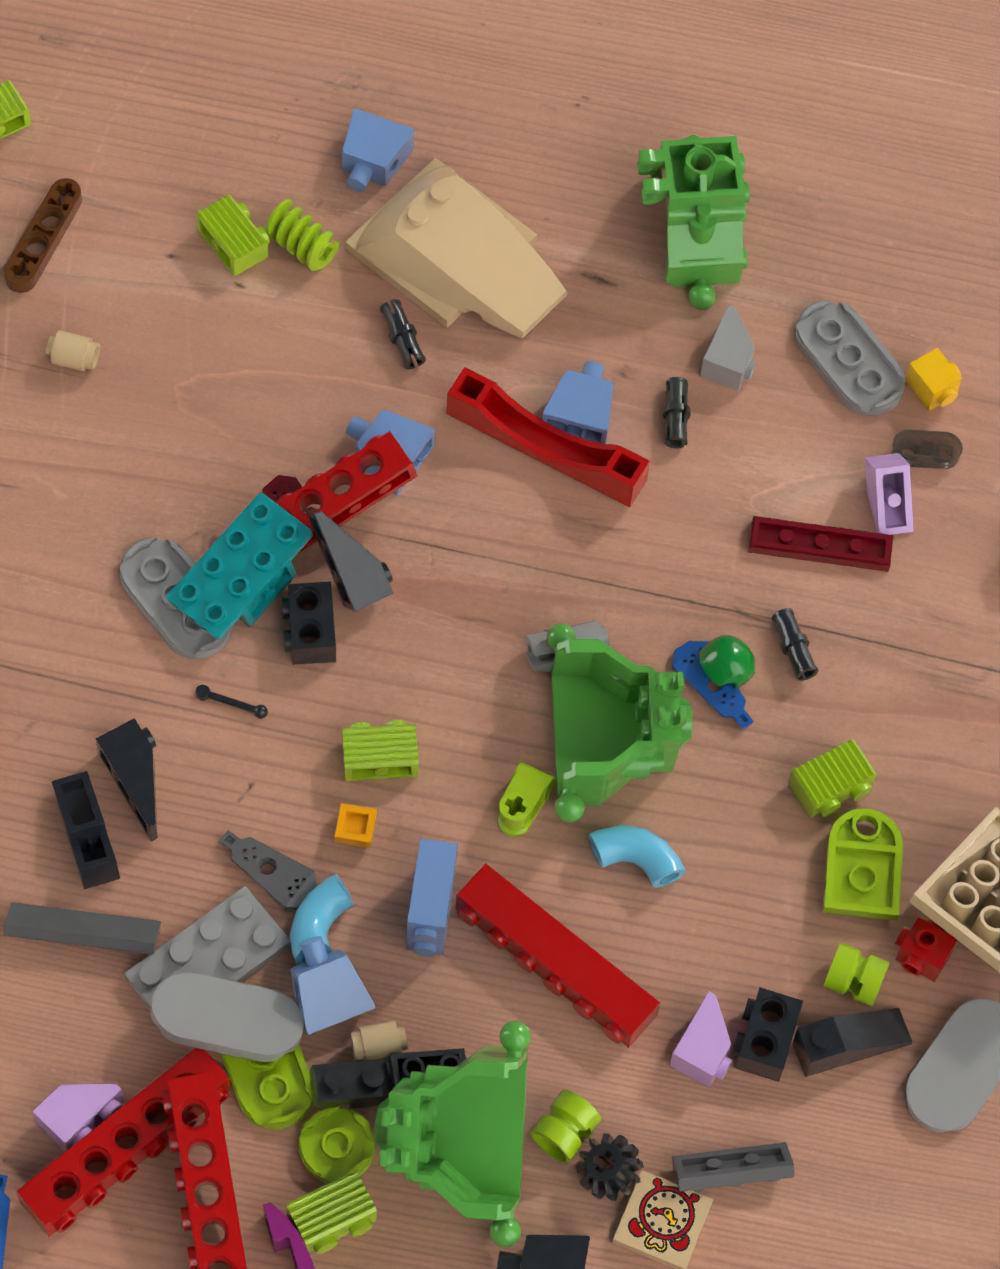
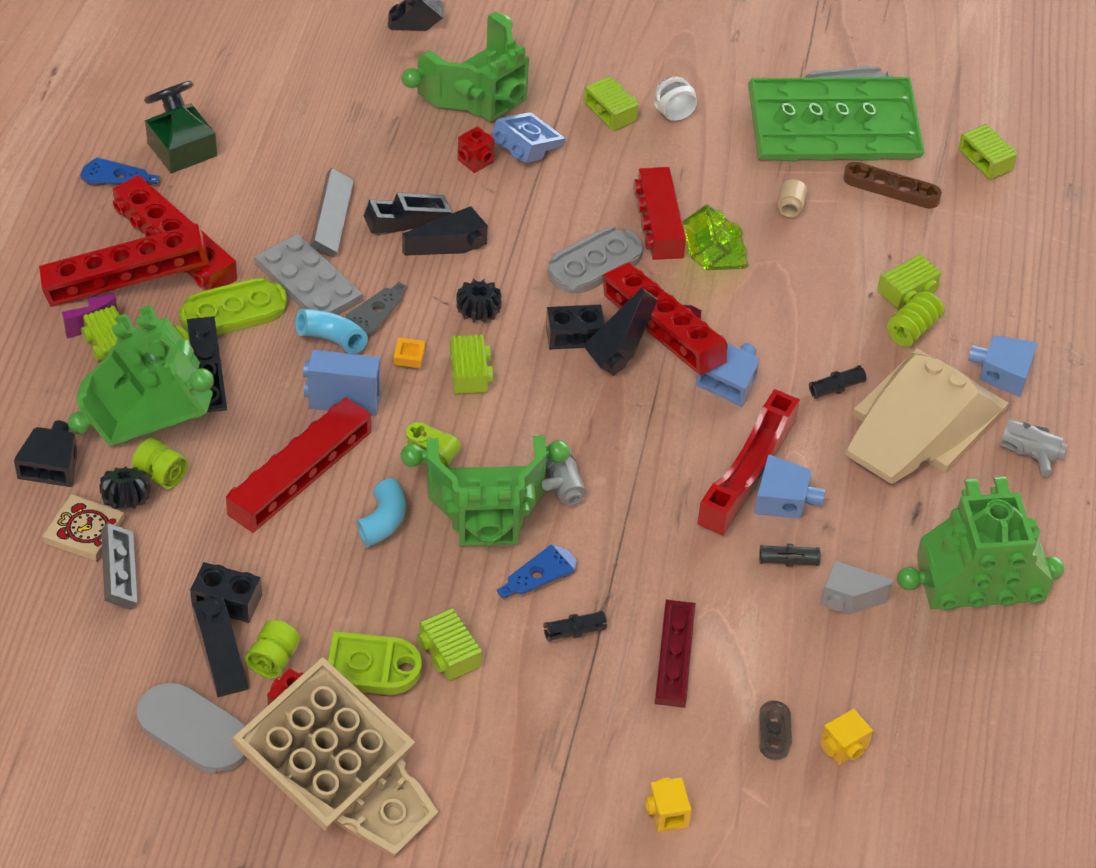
camera: 90 degrees right, 15 degrees down
(76, 1111) = (196, 205): lavender slope -> none
(97, 509) = (660, 213): none -> red brick
(155, 448) = (715, 240): none -> clear neon green slope
(203, 693) = (518, 276): black hinge -> none
(226, 1016) = (255, 274): light grey tile -> none
(242, 568) = (607, 277): teal bracket -> none
(262, 750) = (478, 300): none -> black gear
(327, 987) = (276, 328): medium blue torso -> none
(378, 1041) = (235, 362): tan brick -> none
(499, 138) = (1035, 443): none -> light grey piece
(704, 1046) = (223, 548): lavender slope -> none
(728, 661) = (553, 576): green hair -> none
(850, 358) = (864, 681): light grey tile -> none
(890, 493) = (726, 696): lavender slope -> none

